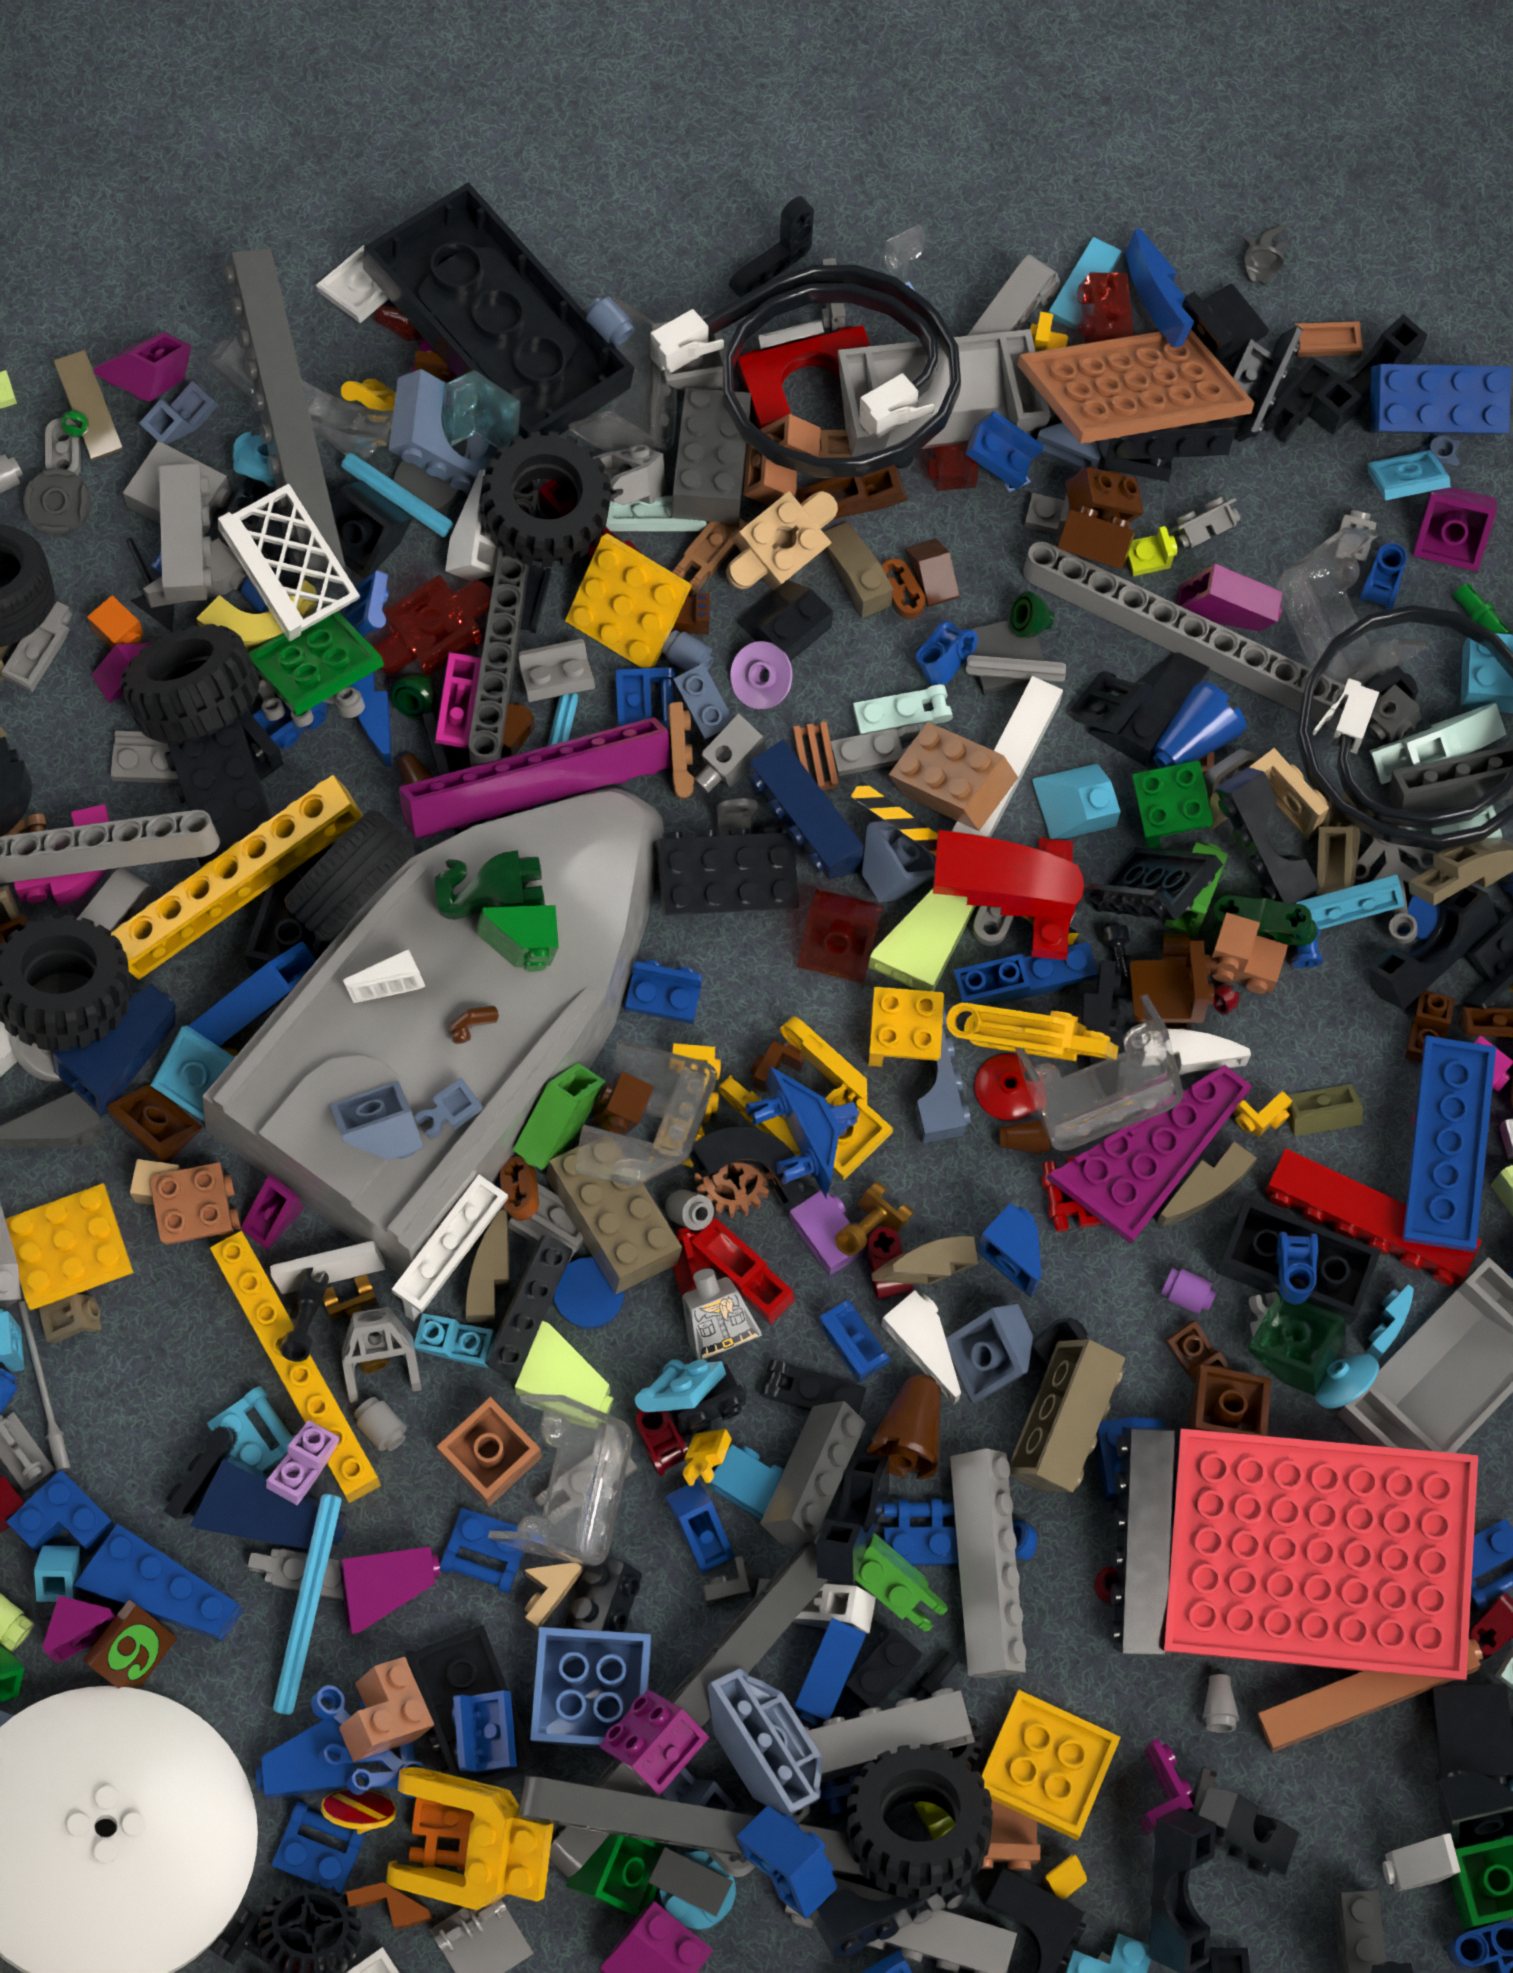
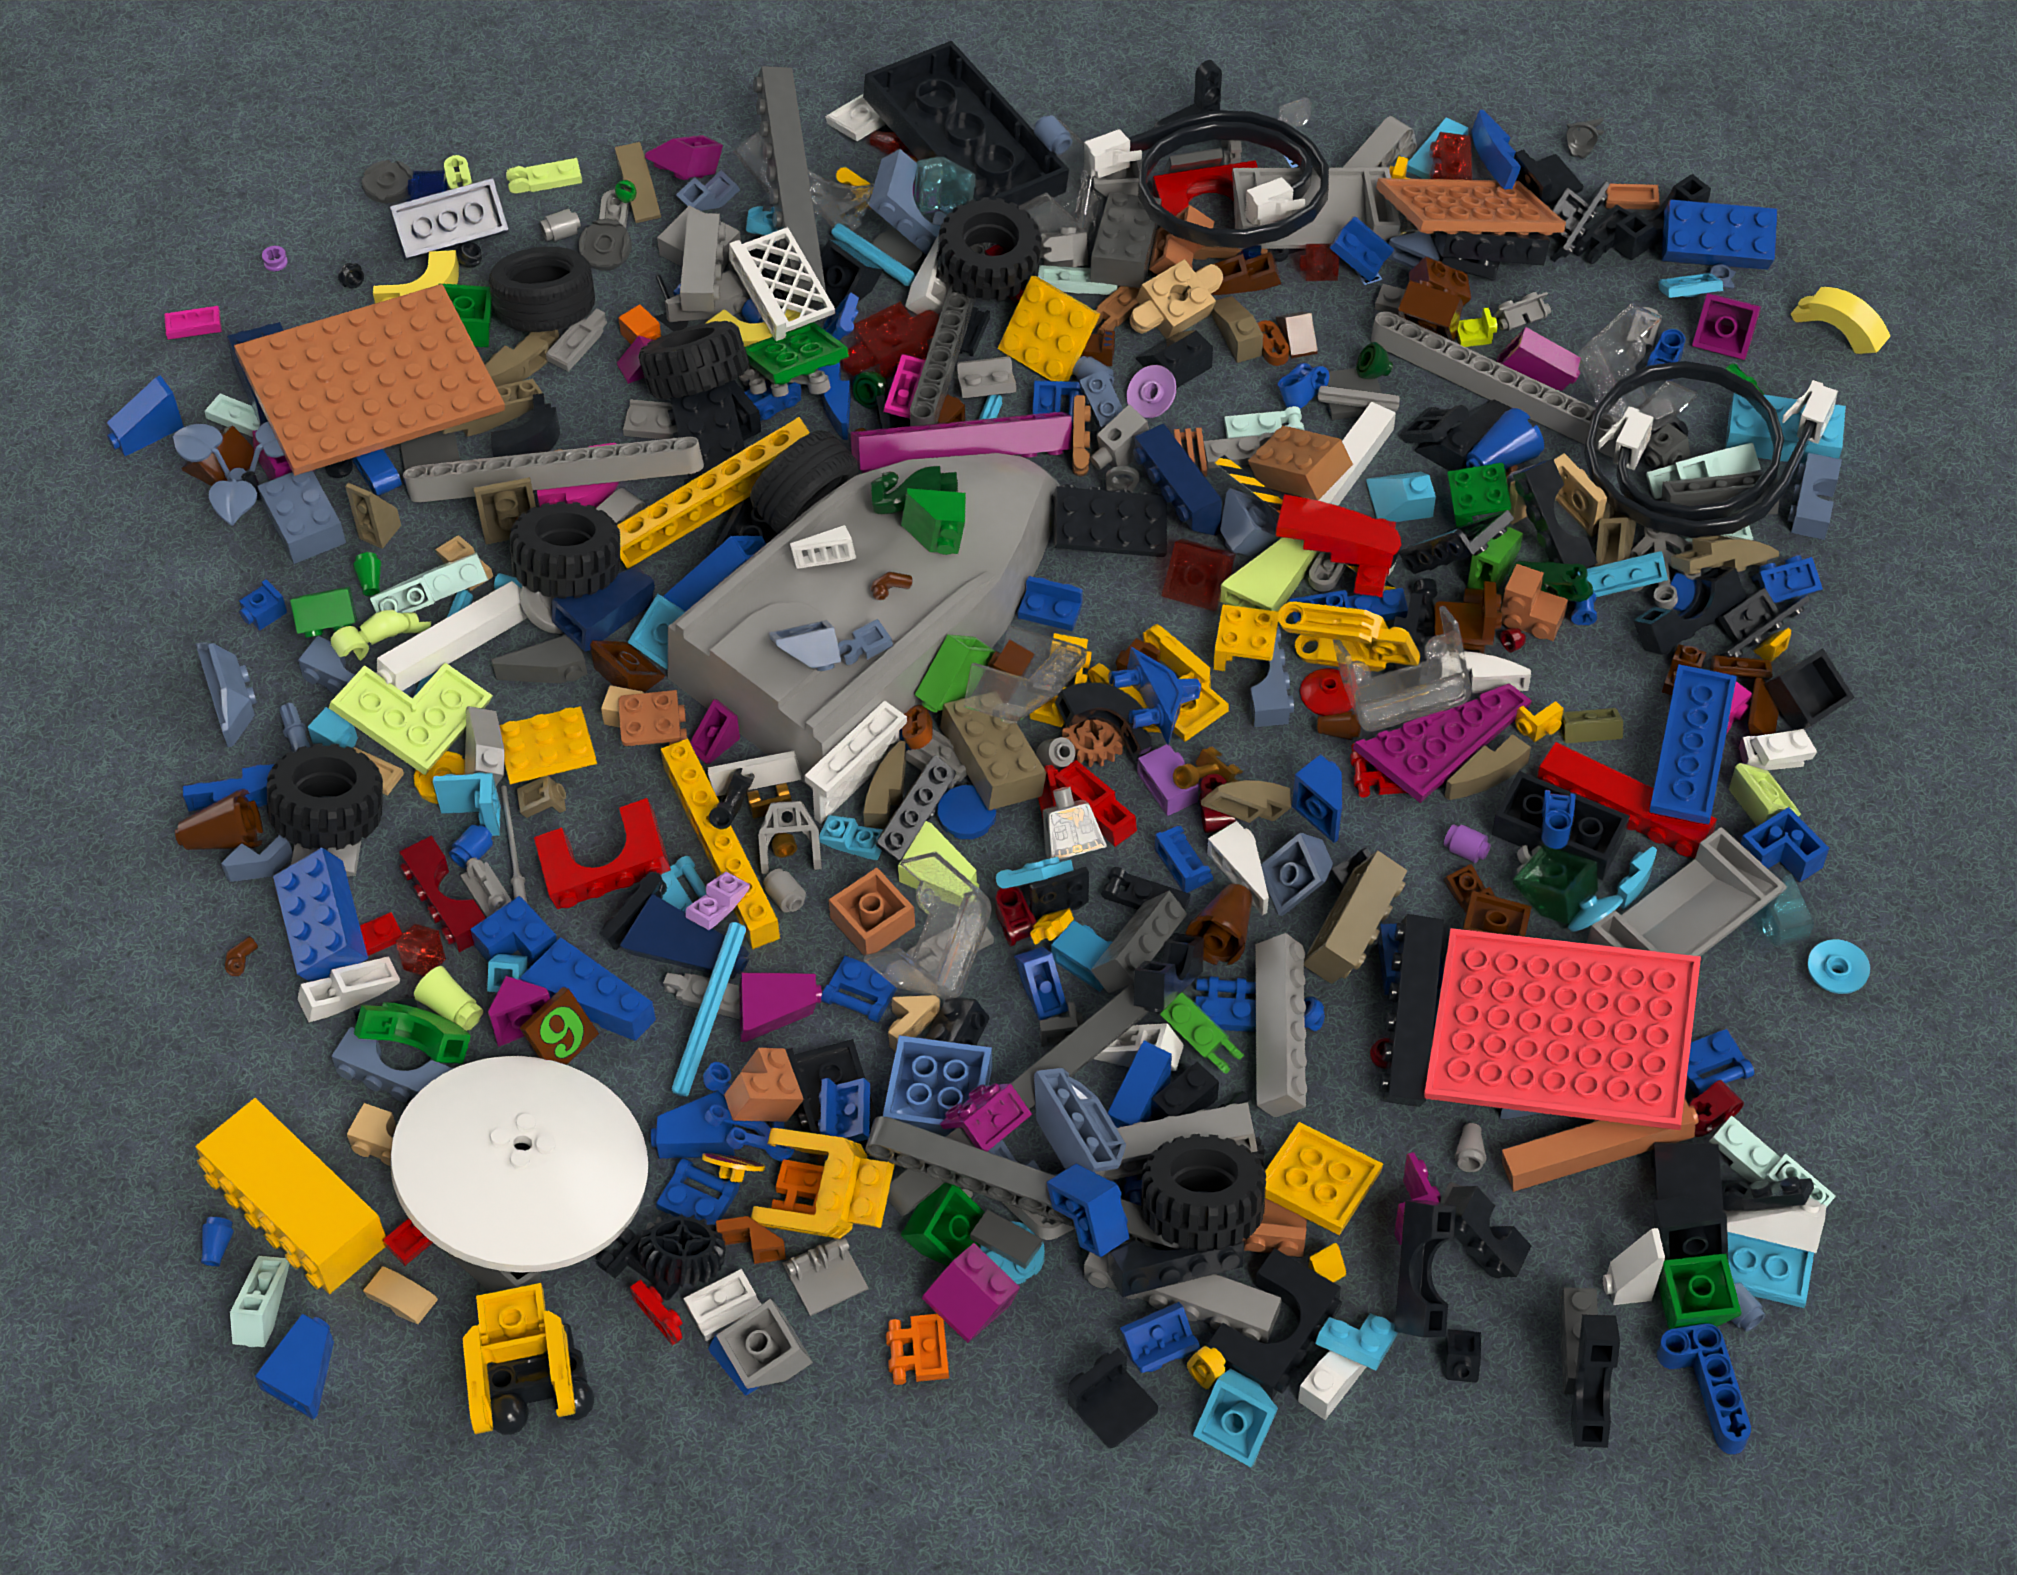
camera: 10 degrees right, 15 degrees down
(203, 1401) = (572, 883): none -> red arch

